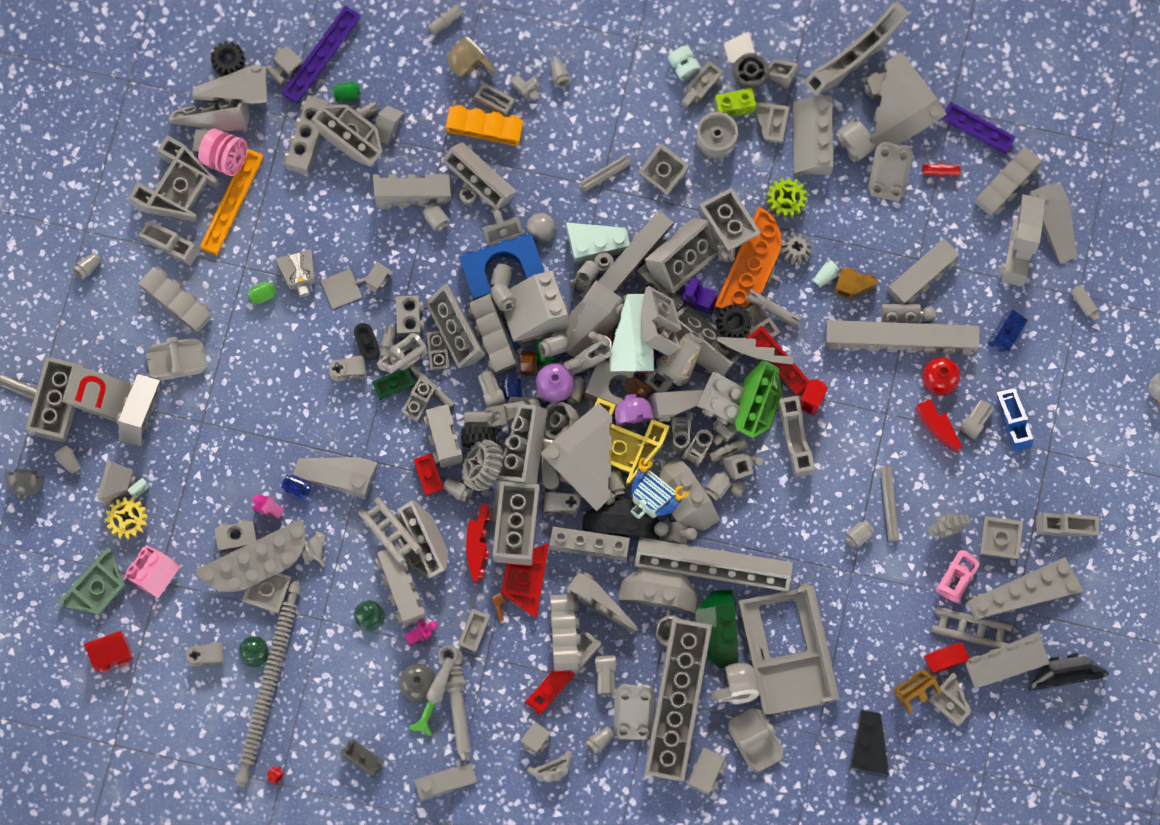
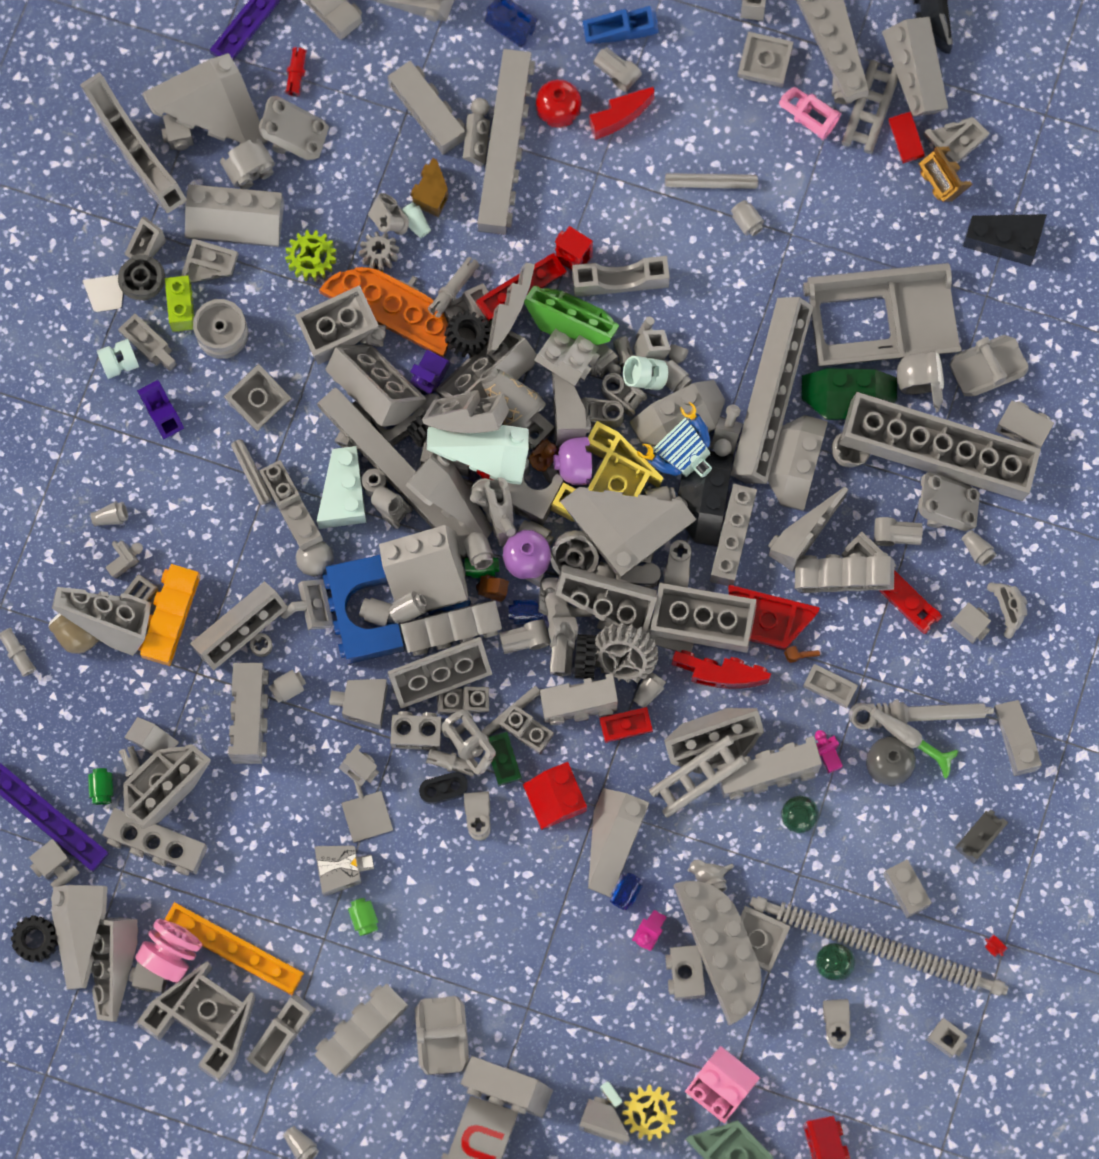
camera: 80 degrees left, 0 degrees up
(198, 734) = (943, 1029): none -> light grey brick
(314, 701) = (907, 888): none -> light grey brick
(367, 426) = (555, 796): none -> red slope
(427, 273) = (362, 701): none -> light grey torso
(474, 79) = (112, 619): none -> light grey wedge
(580, 204) = (290, 505): none -> light grey slope
(646, 99) = (160, 409): none -> dark purple brick
(714, 461) = (645, 373): none -> light aqua wheel
(826, 251) = (388, 215): none -> light grey piece
(949, 525) = (748, 112): light grey gear -> none

